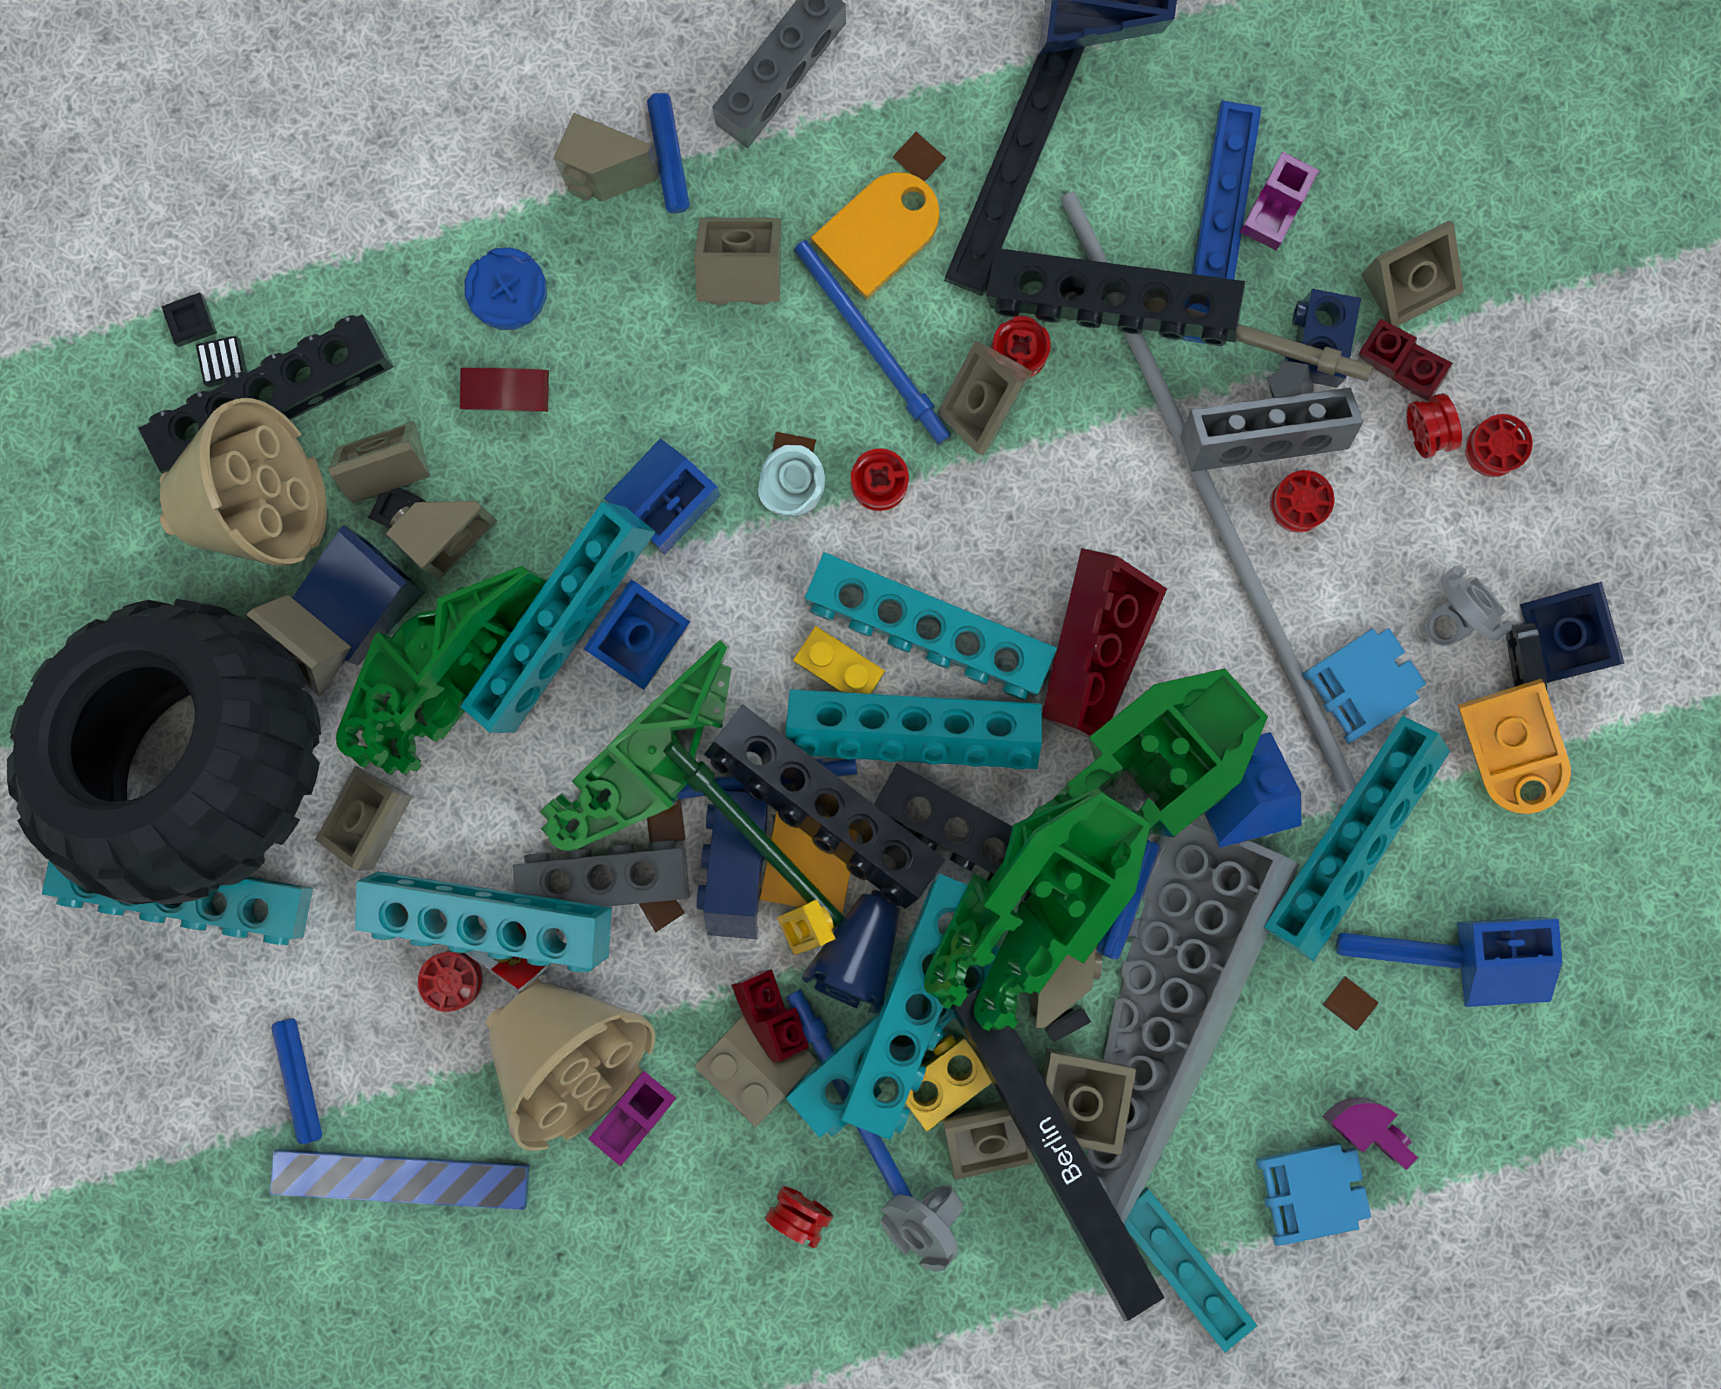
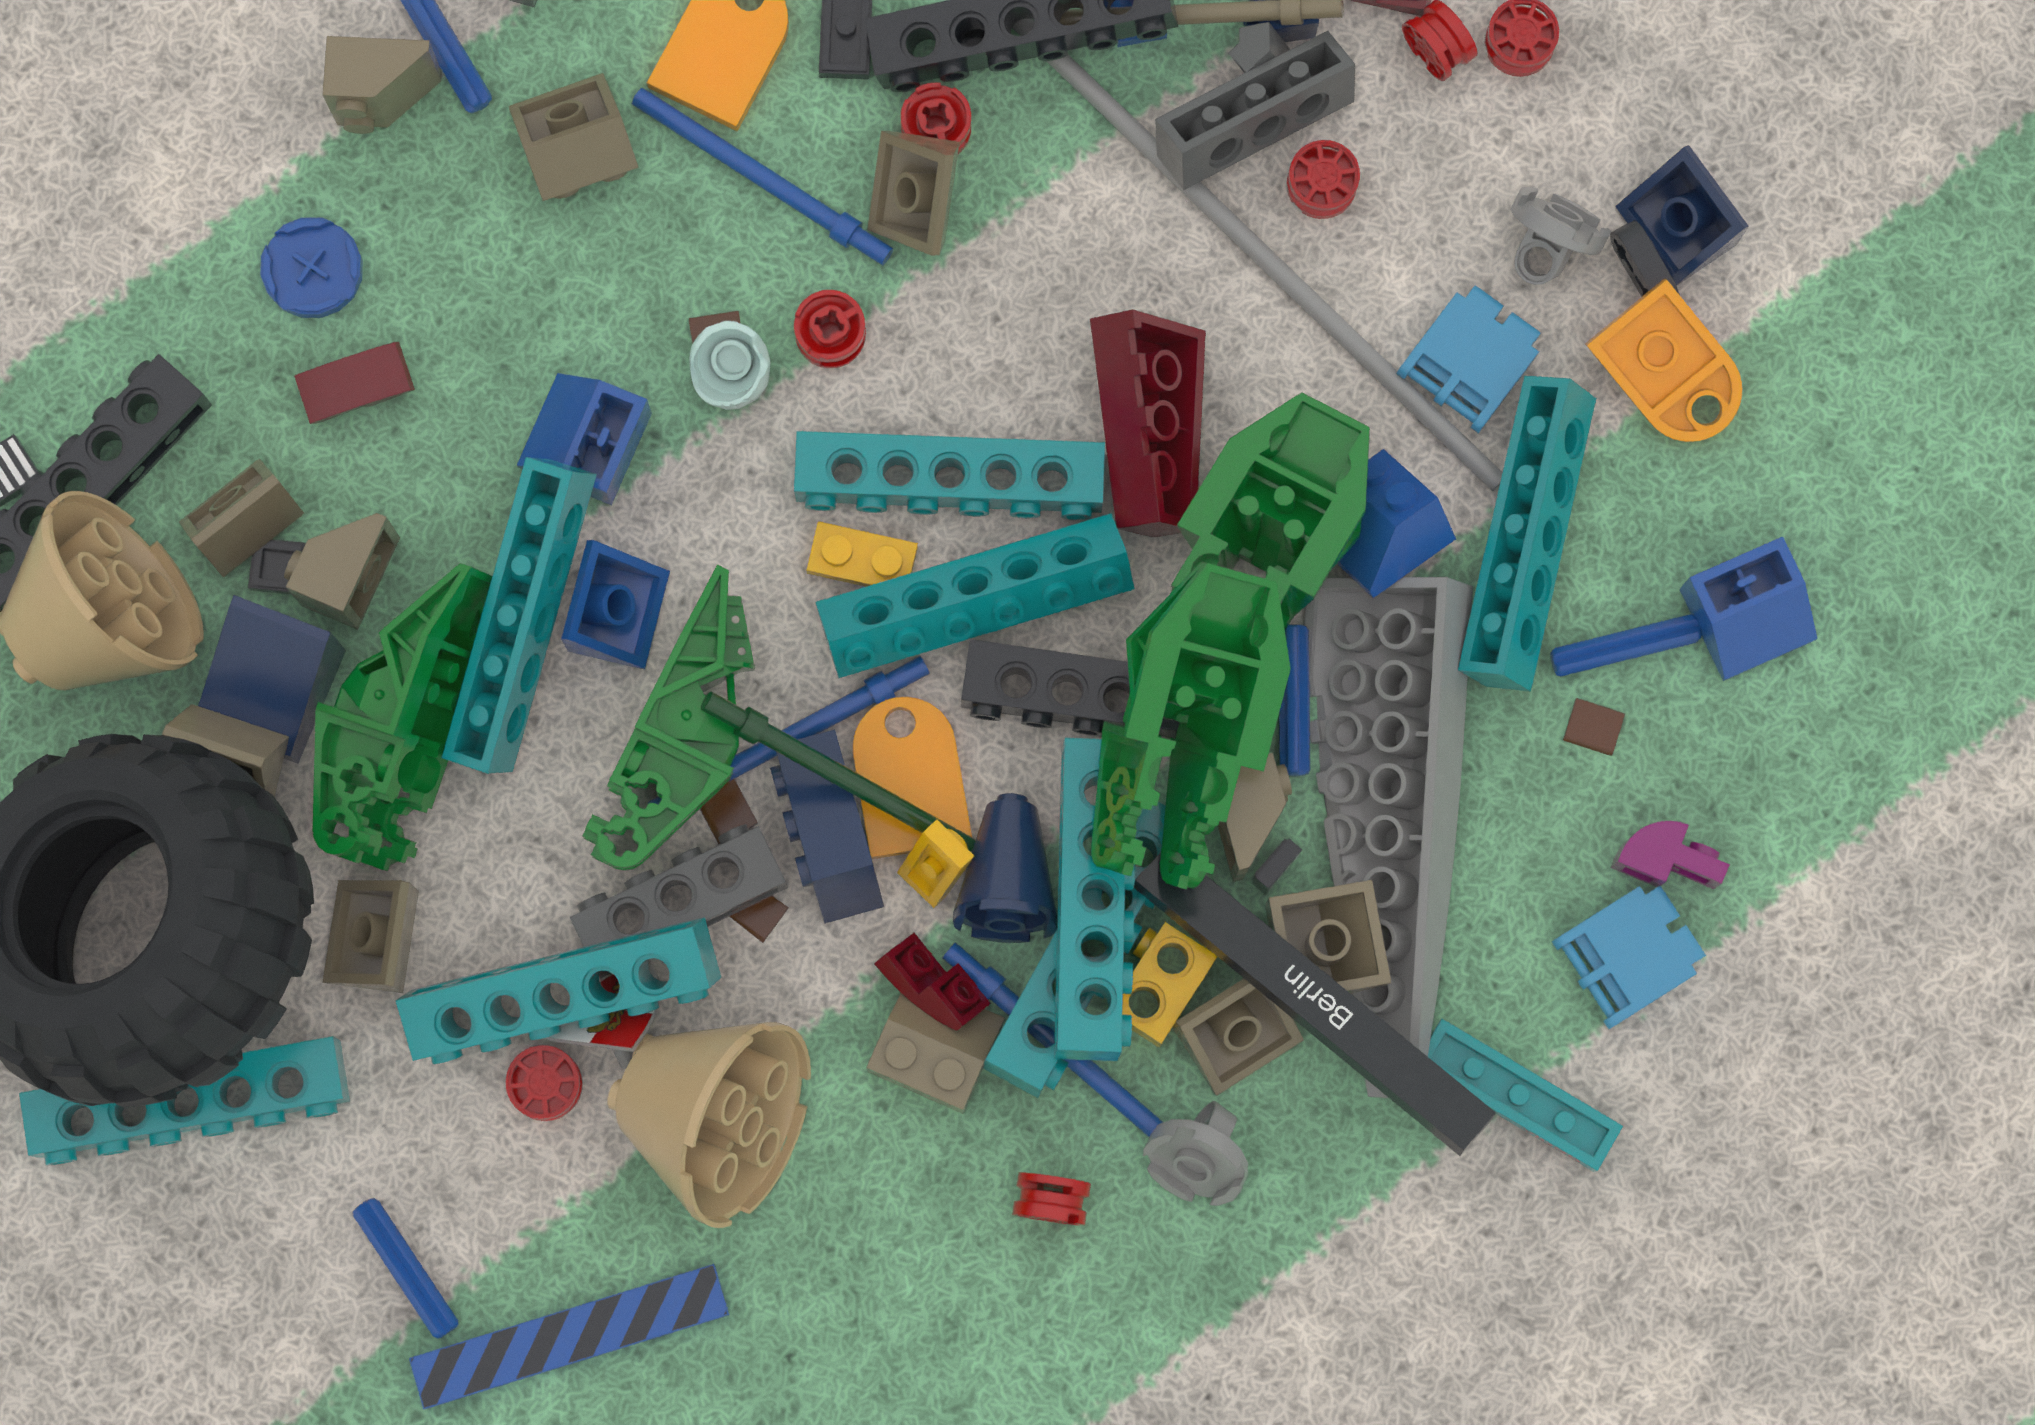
camera: 25 degrees left, 5 degrees down
(632, 1118) = (816, 1158): magenta brick -> none
(846, 807) = (893, 697): black brick -> none

